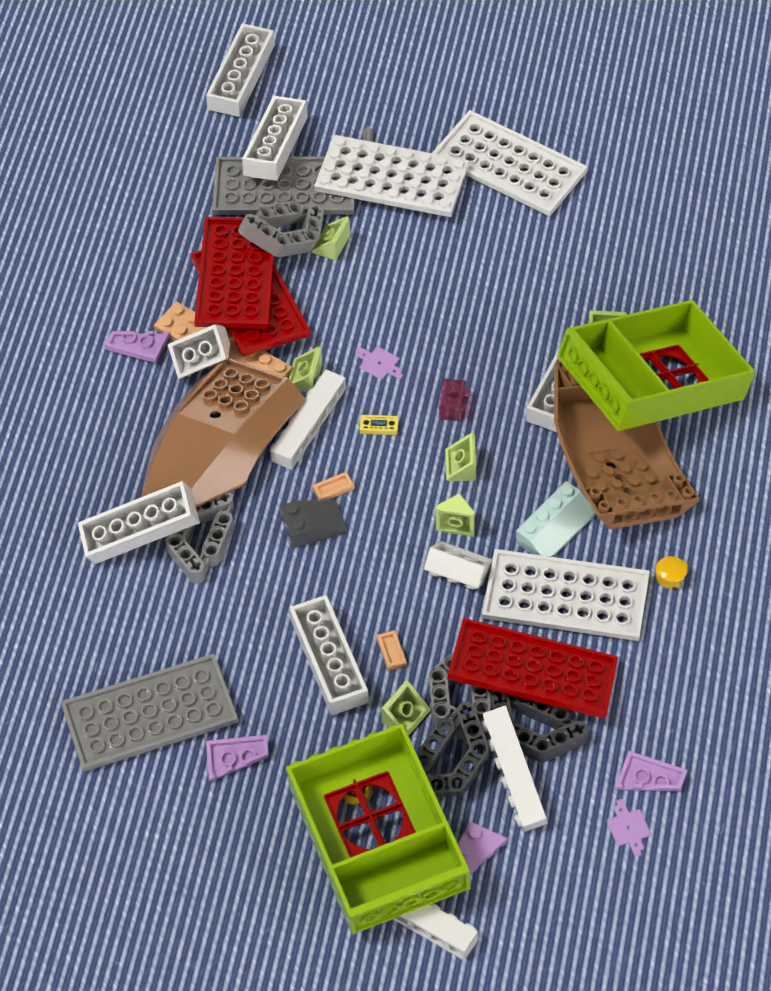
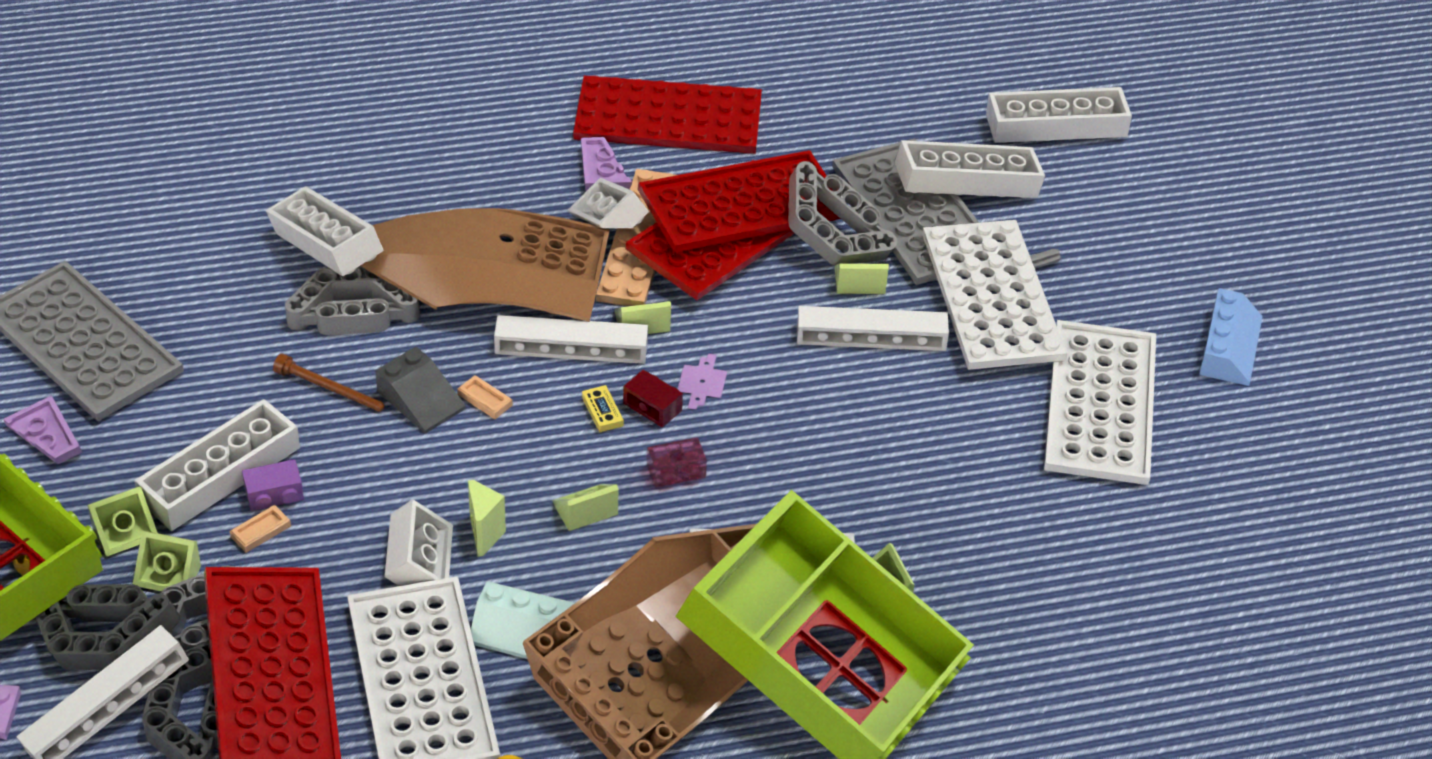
camera: 60 degrees right, 10 degrees down
(101, 287) = (669, 114): none -> red plate
(244, 592) = (285, 365): none -> dark orange piece
(353, 722) = (120, 520): none -> yellowish green slope
(360, 629) = (273, 485): none -> medium lavender brick
(385, 252) = (872, 328): none -> white brick
(388, 392) = (652, 398): none -> dark red brick
(489, 77) = (1231, 338): none -> light blue slope

